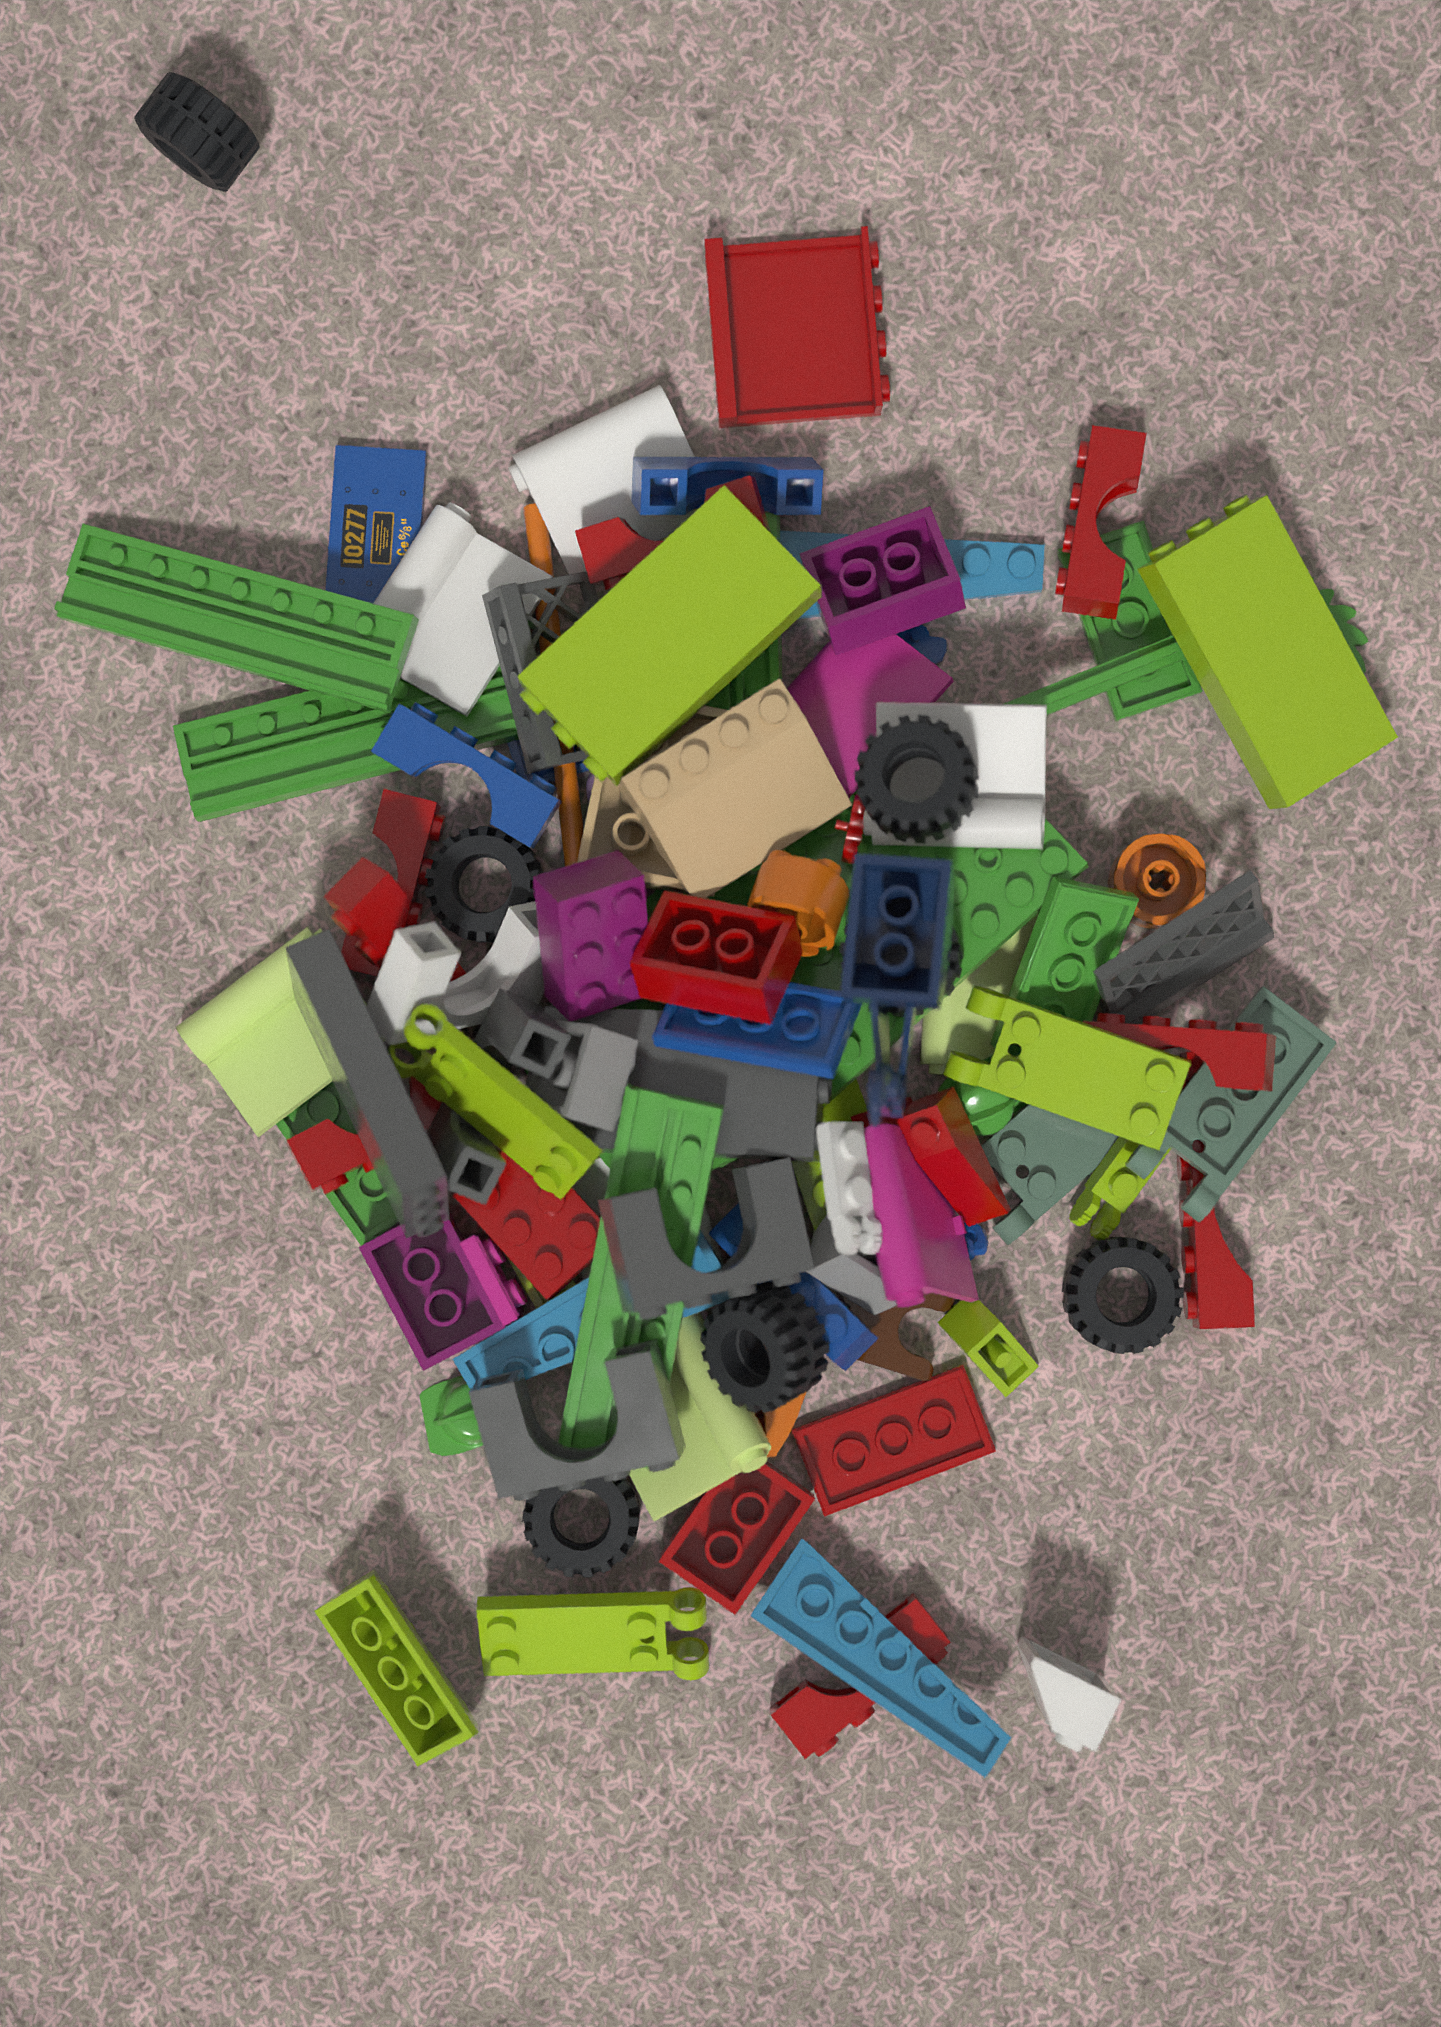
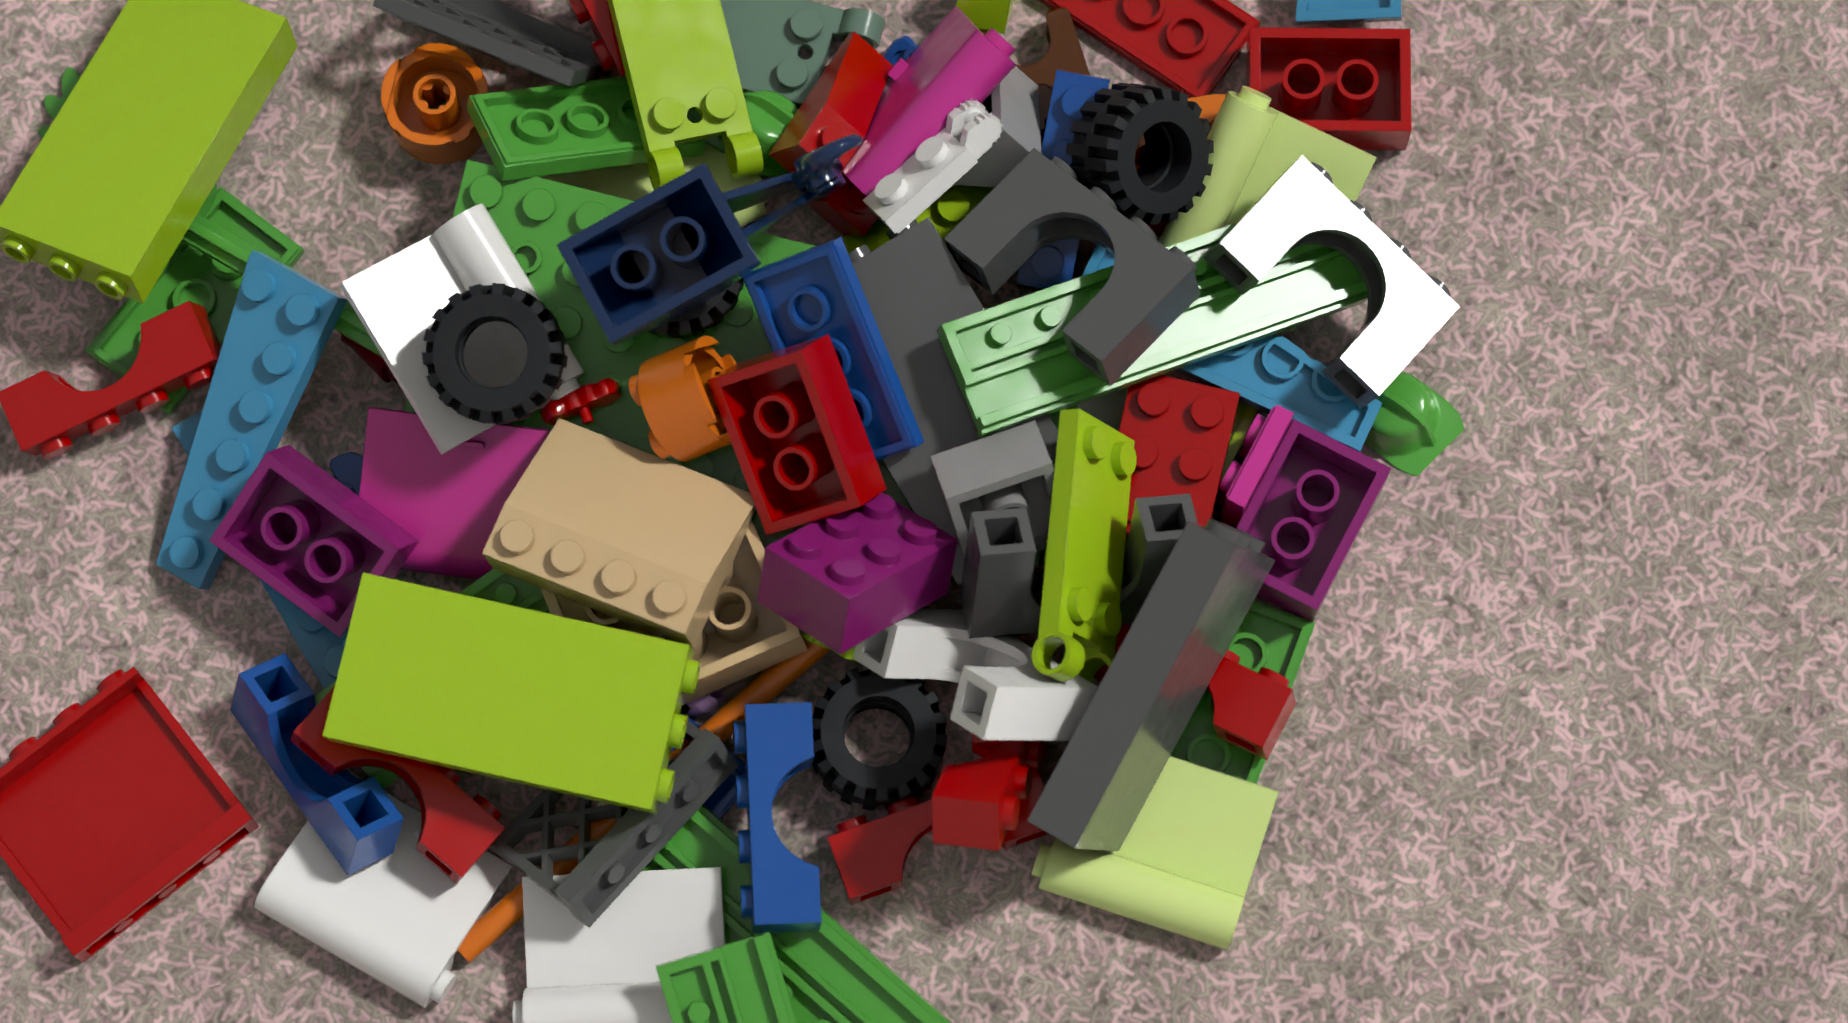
camera: 120 degrees left, 10 degrees down
(397, 1668) = (1687, 309): lime slope -> none
(583, 1557) = (1448, 204): black tyre -> none
(592, 1633) = (1523, 154): lime hinge -> none
(1028, 617) = (257, 383): none -> dark azure wing

